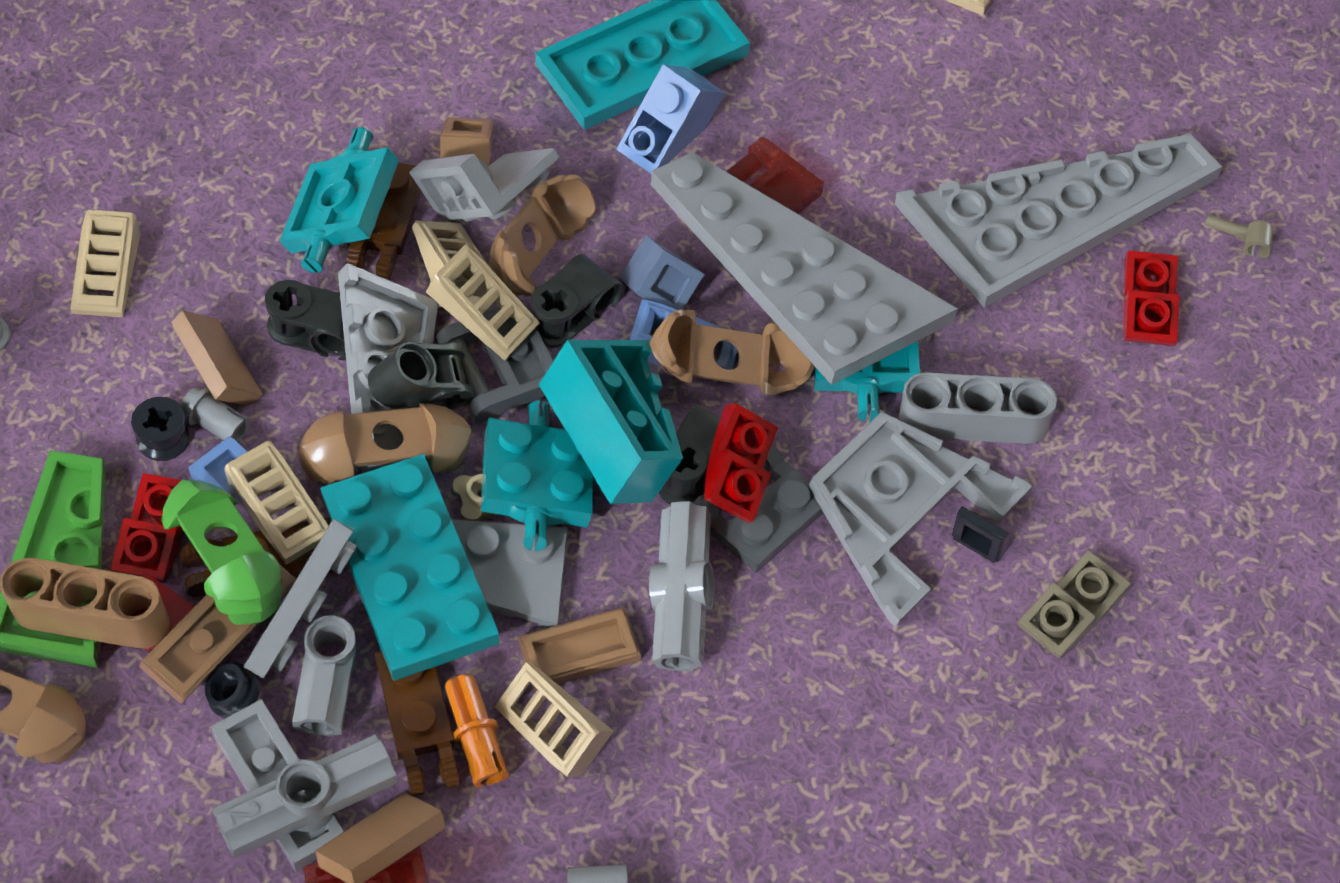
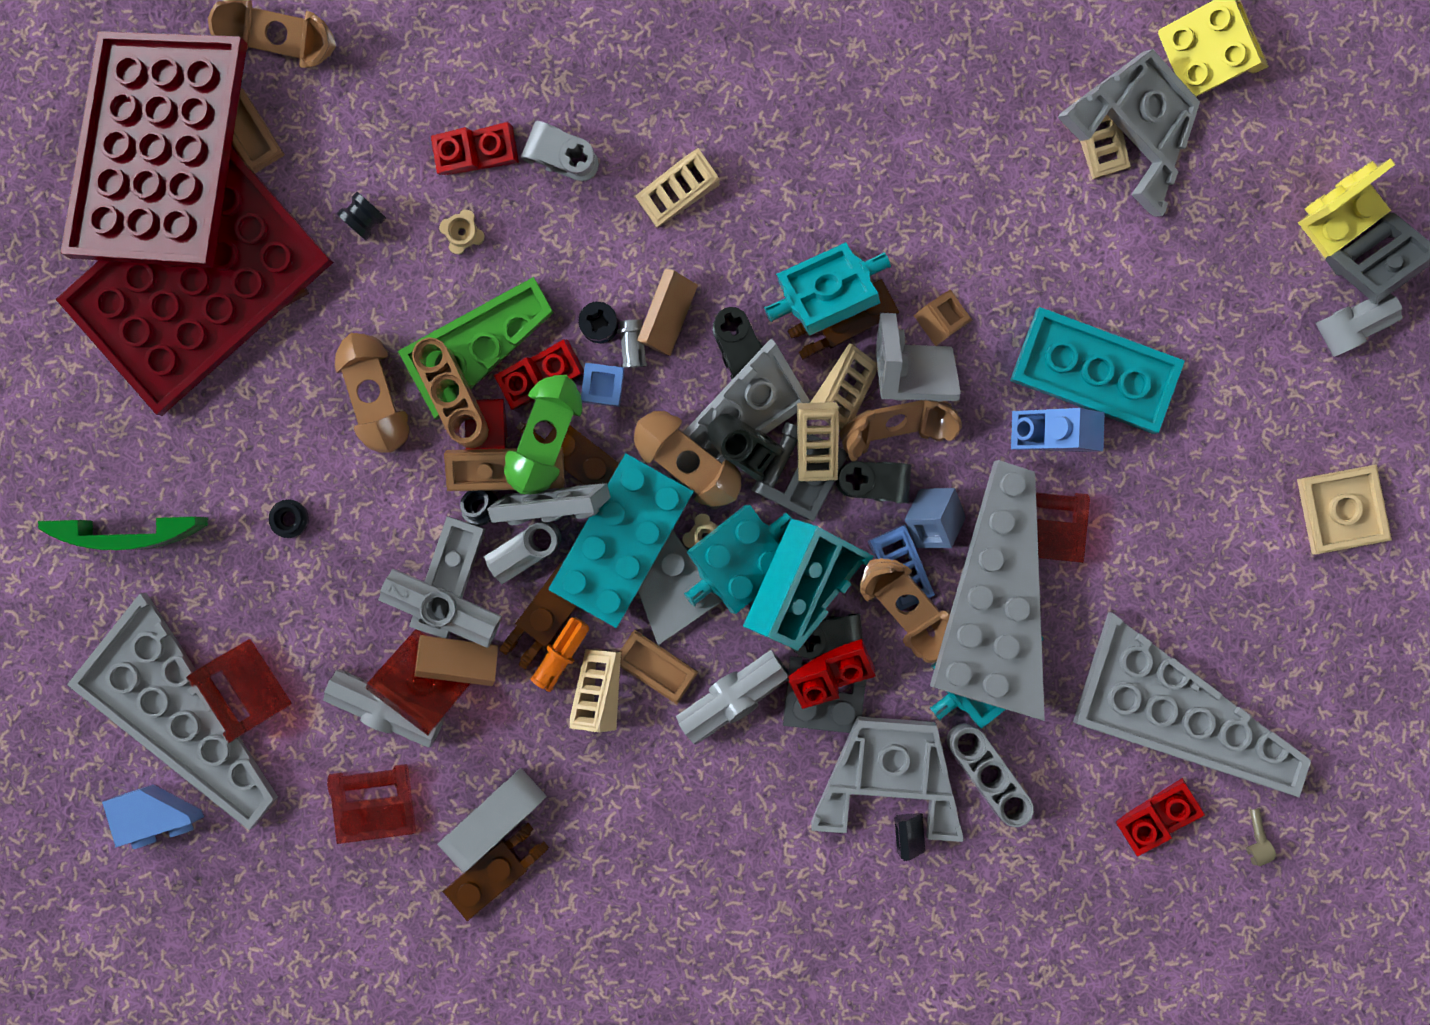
camera: 55 degrees right, 30 degrees up
(257, 474) = (588, 419): tan slope -> none
(1074, 605) = (901, 918): dark tan slope -> none

